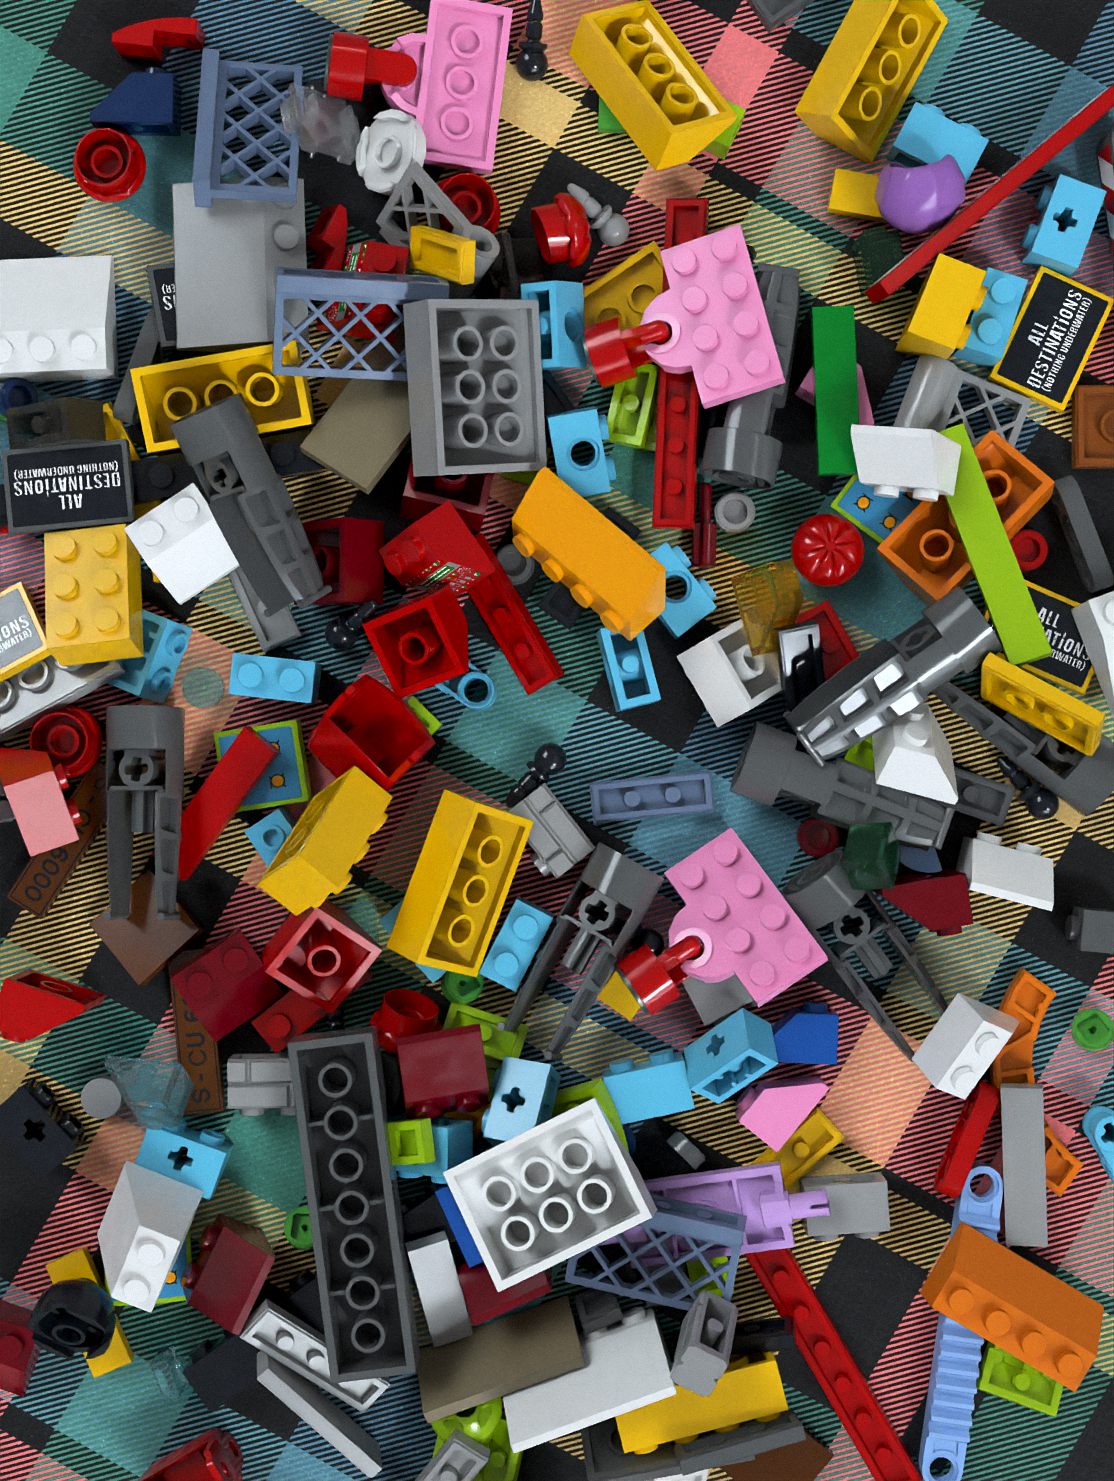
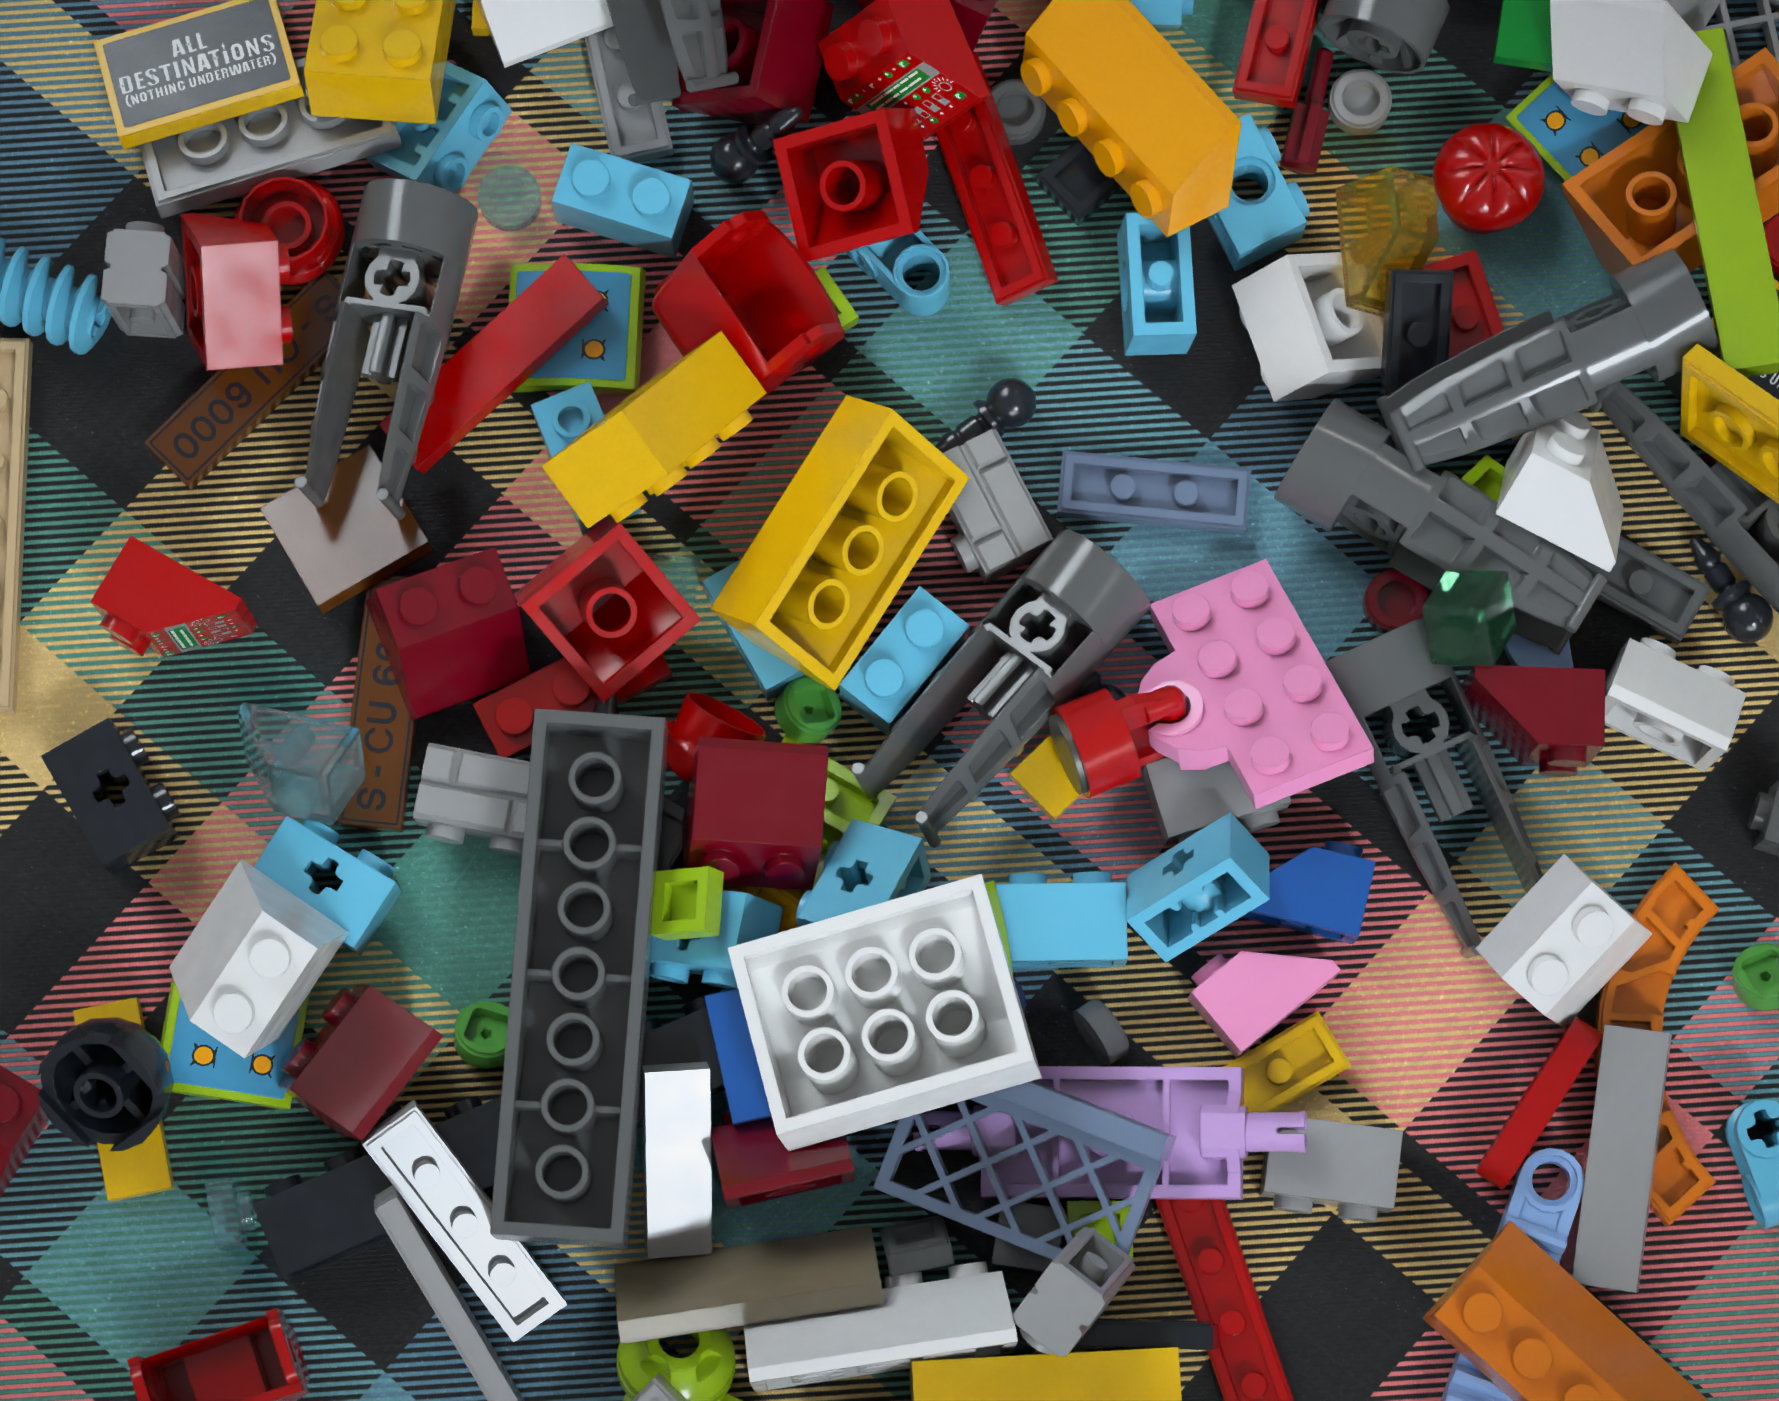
camera: 10 degrees right, 10 degrees down
(101, 1097) = (218, 774): light grey tile -> none

